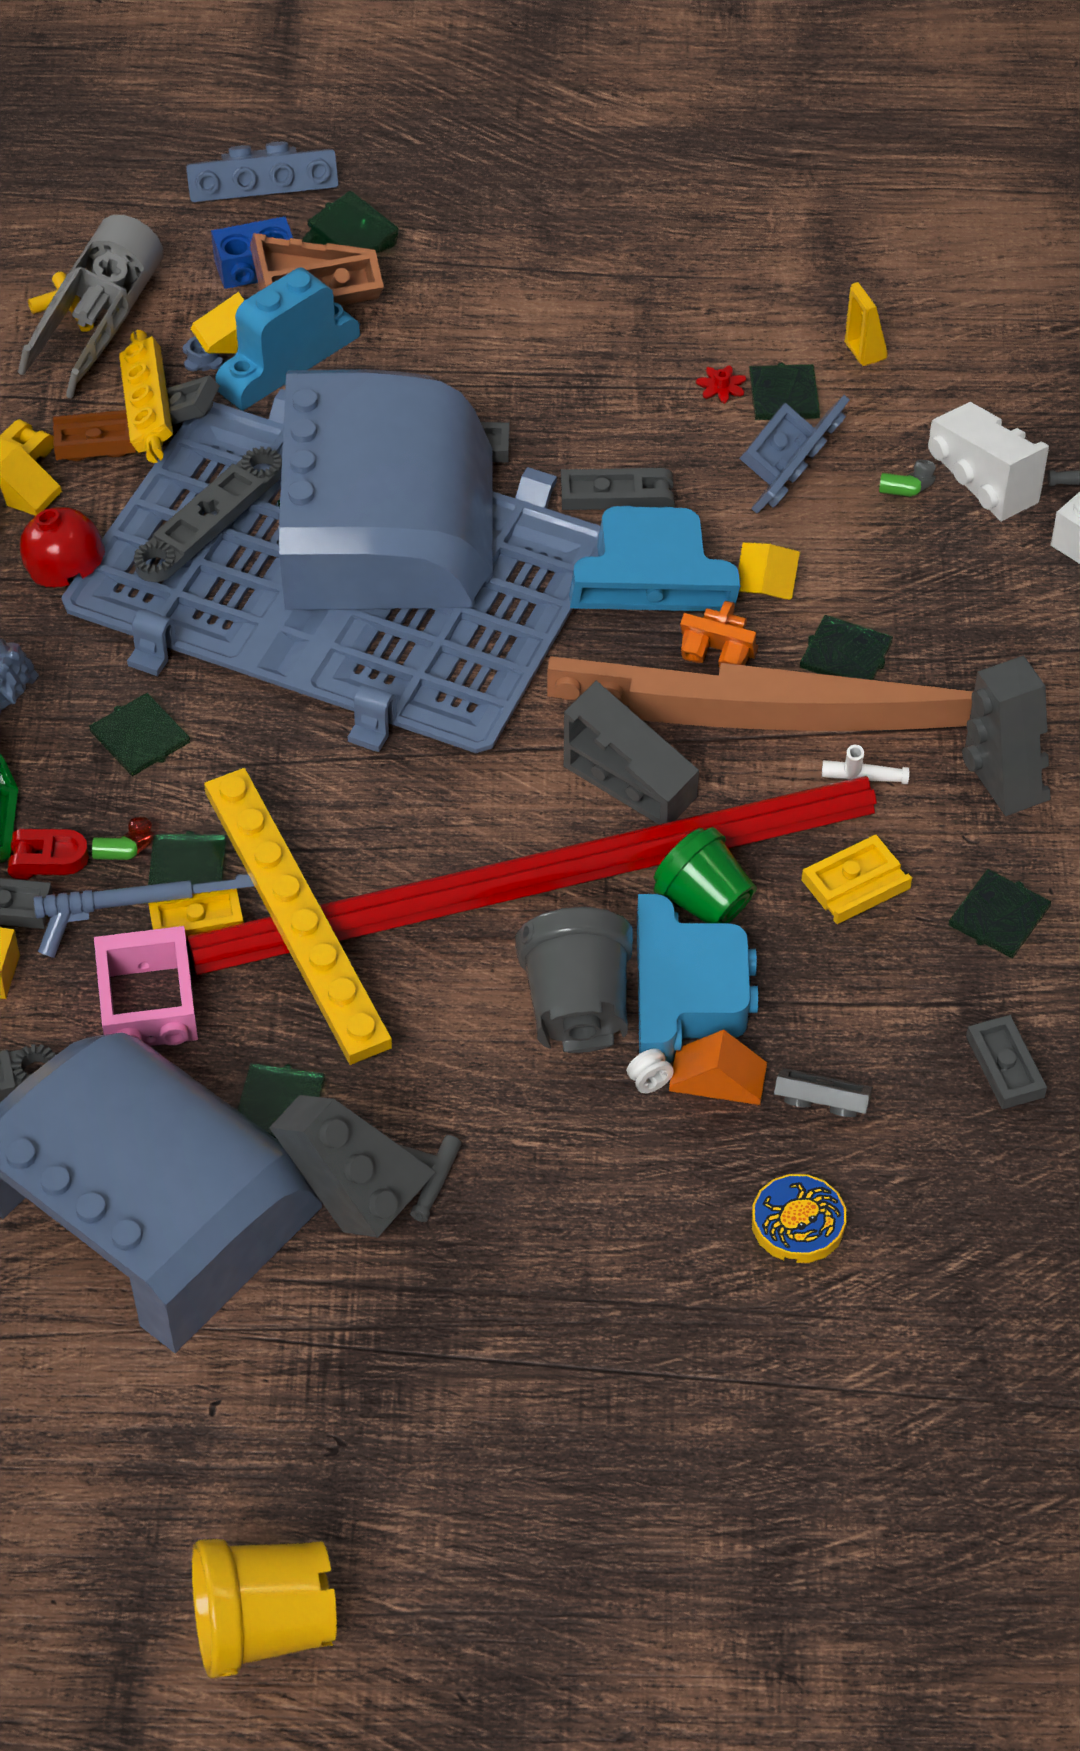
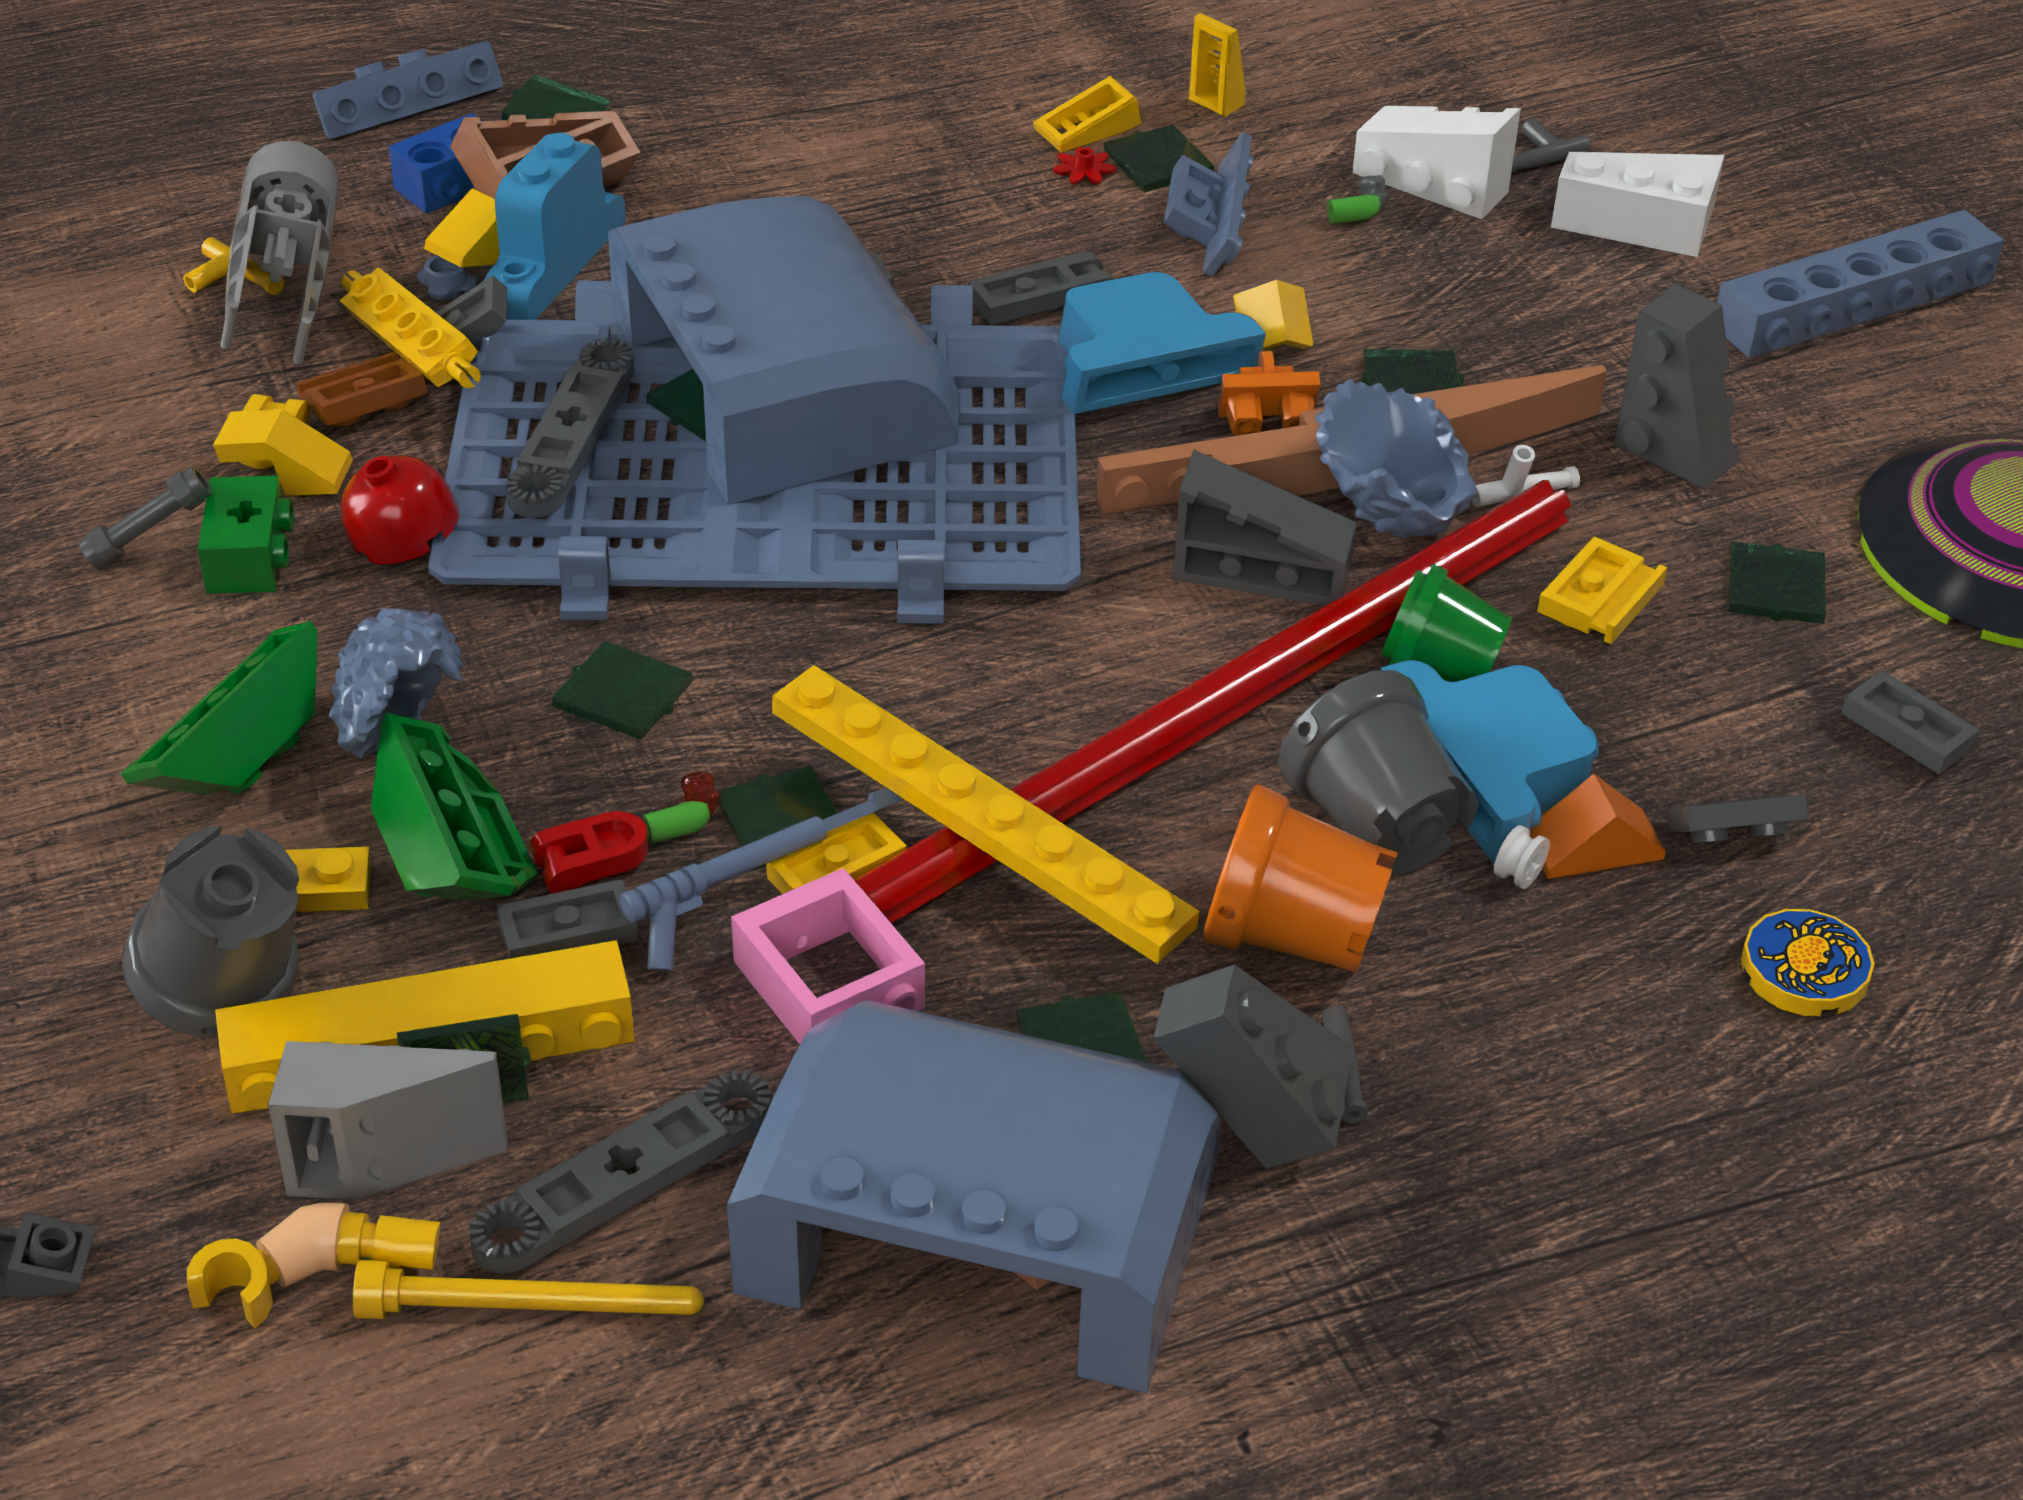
camera: 25 degrees left, 10 degrees down
(463, 1041) = (1297, 885): none -> orange piece
(754, 726) = (1394, 458): none -> sand blue hair
(767, 328) = (1100, 110): none -> yellow slope

